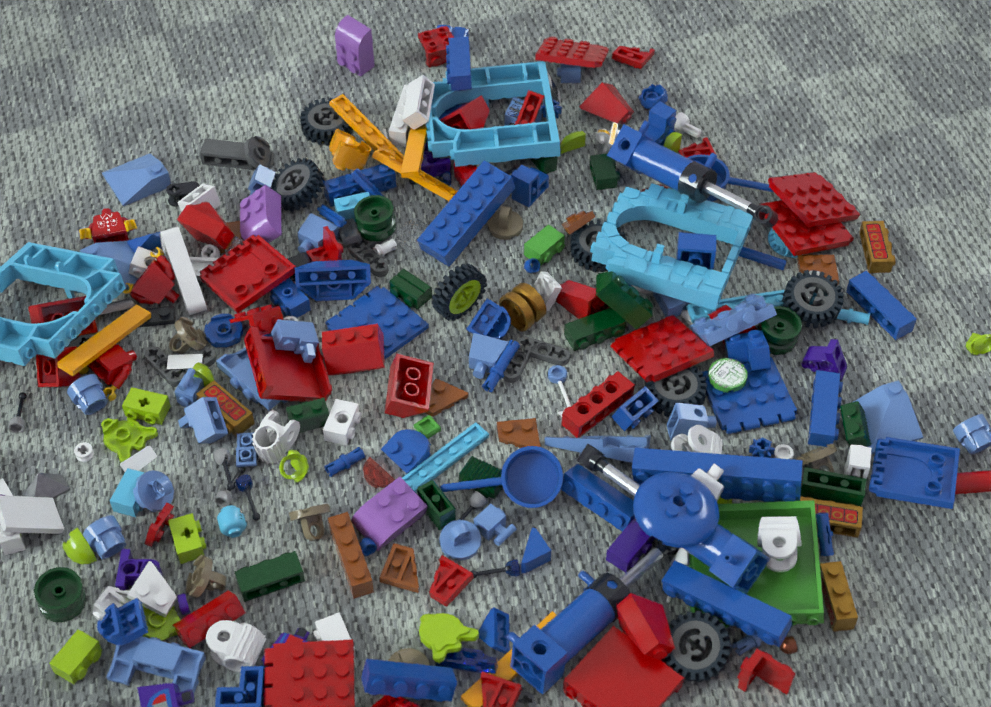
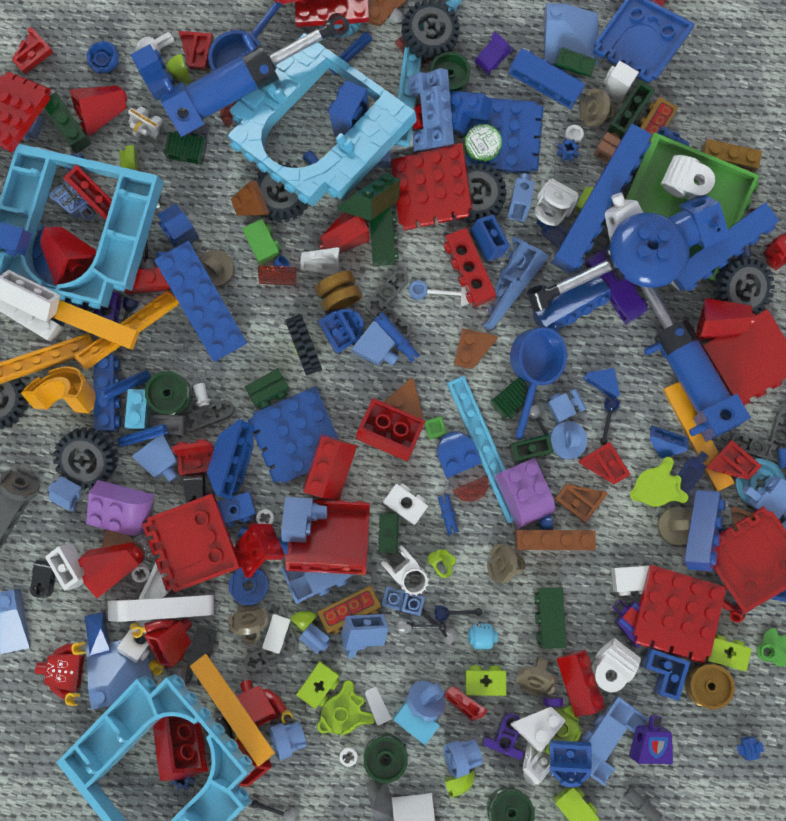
camera: 75 degrees left, 30 degrees up
(89, 475) = (385, 770): none -> dark green wheel
(519, 265) = (277, 275): none -> clear red tile
(581, 90) = (66, 123): none -> dark green brick

